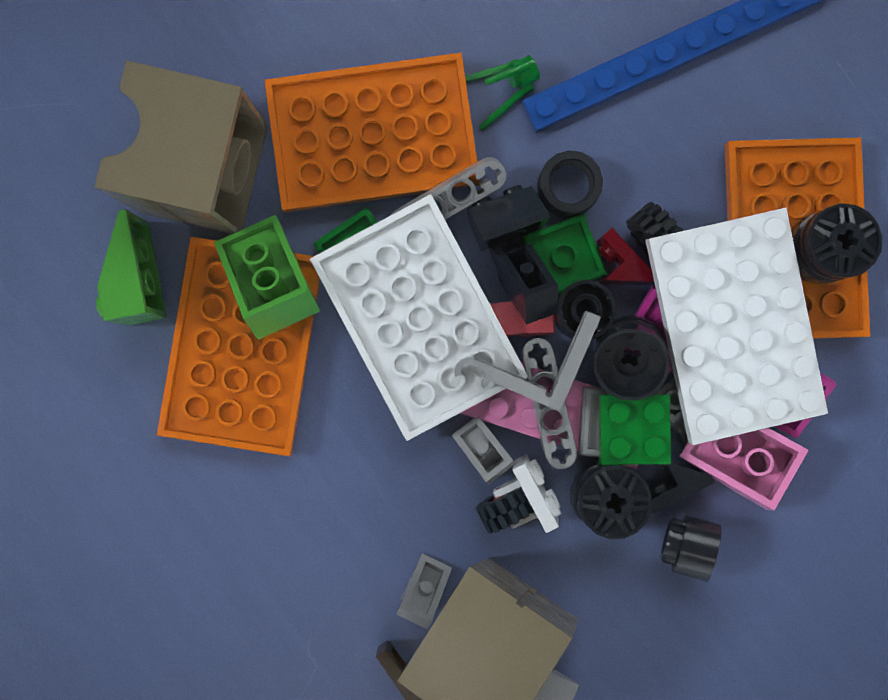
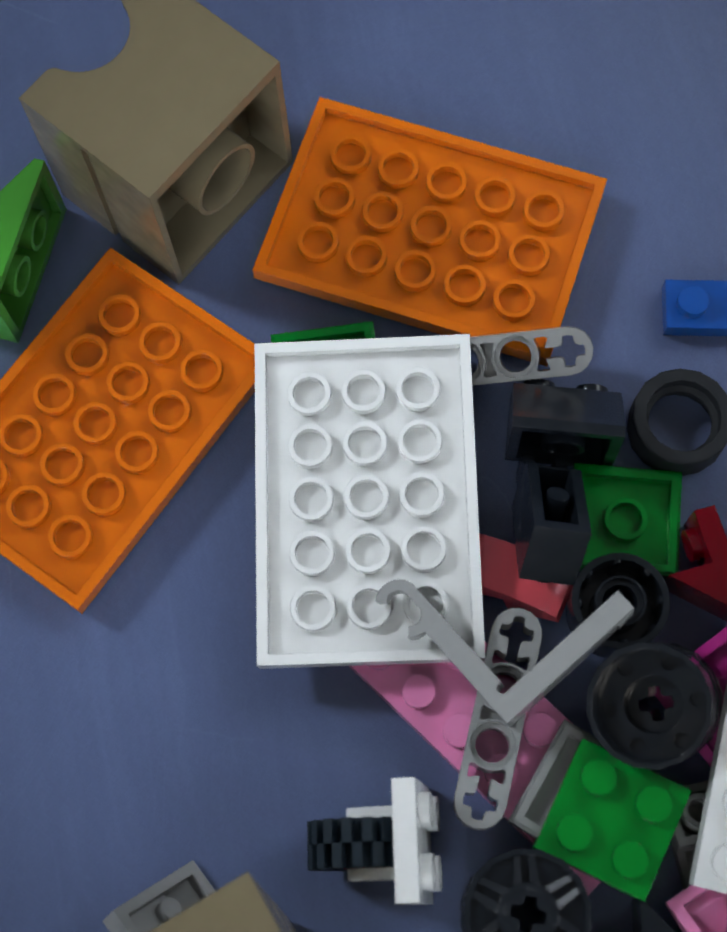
camera: 35 degrees right, 15 degrees down
(266, 277) = (181, 345): bright green slope -> none
(483, 450) = (364, 739): light grey slope -> none
(519, 73) = (676, 242): green plant -> none

